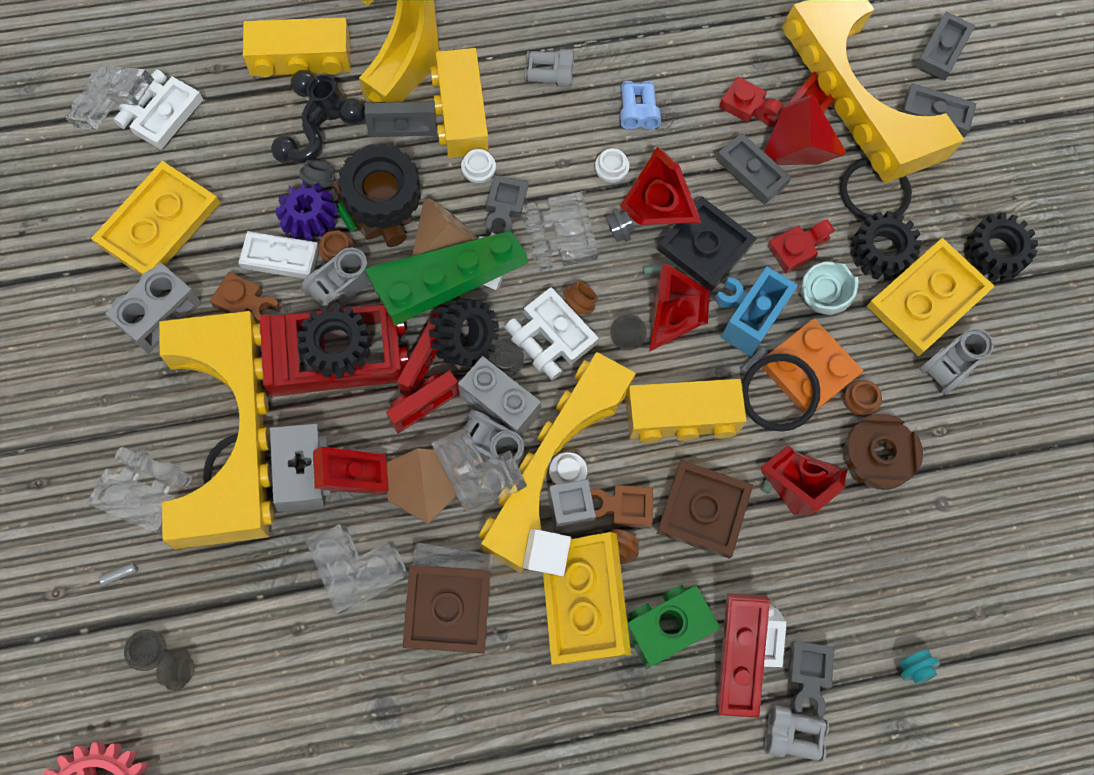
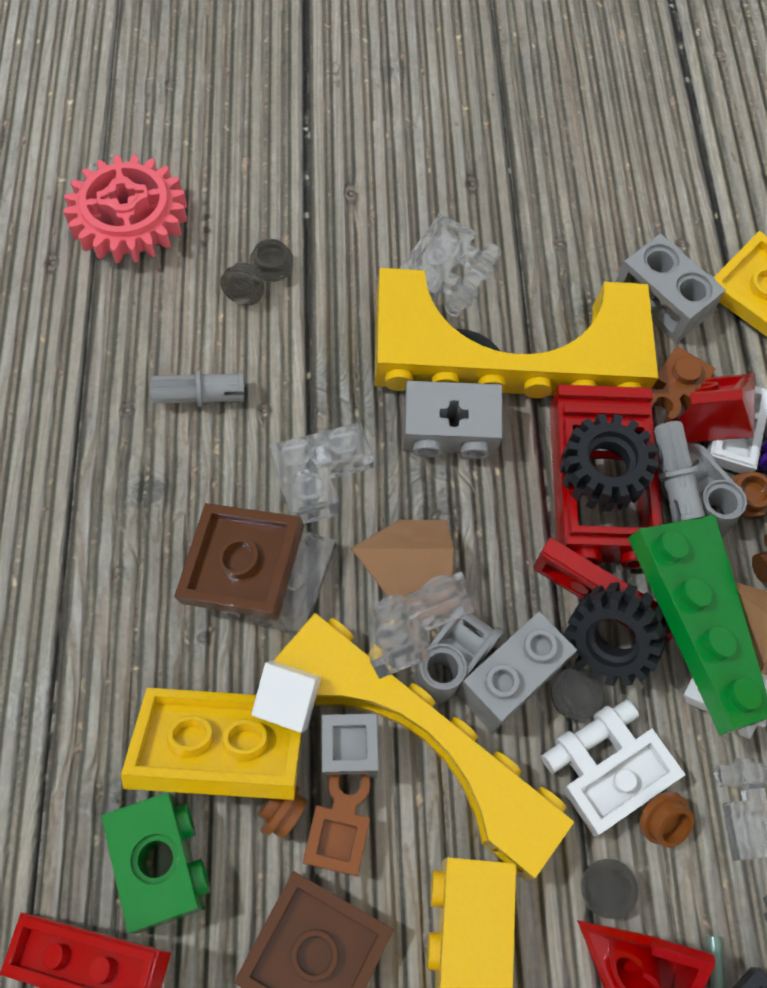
camera: 100 degrees right, 5 degrees down
(117, 574) = (359, 244): light grey piece -> none
(272, 268) = (721, 409): none -> red slope
(288, 685) = (197, 388): none -> light grey axle
(335, 292) = (678, 472): none -> light grey axle
(350, 471) = (437, 471): red plate -> none
(433, 394) = (515, 559): red plate -> none
(567, 468) = (403, 755): white plate -> none

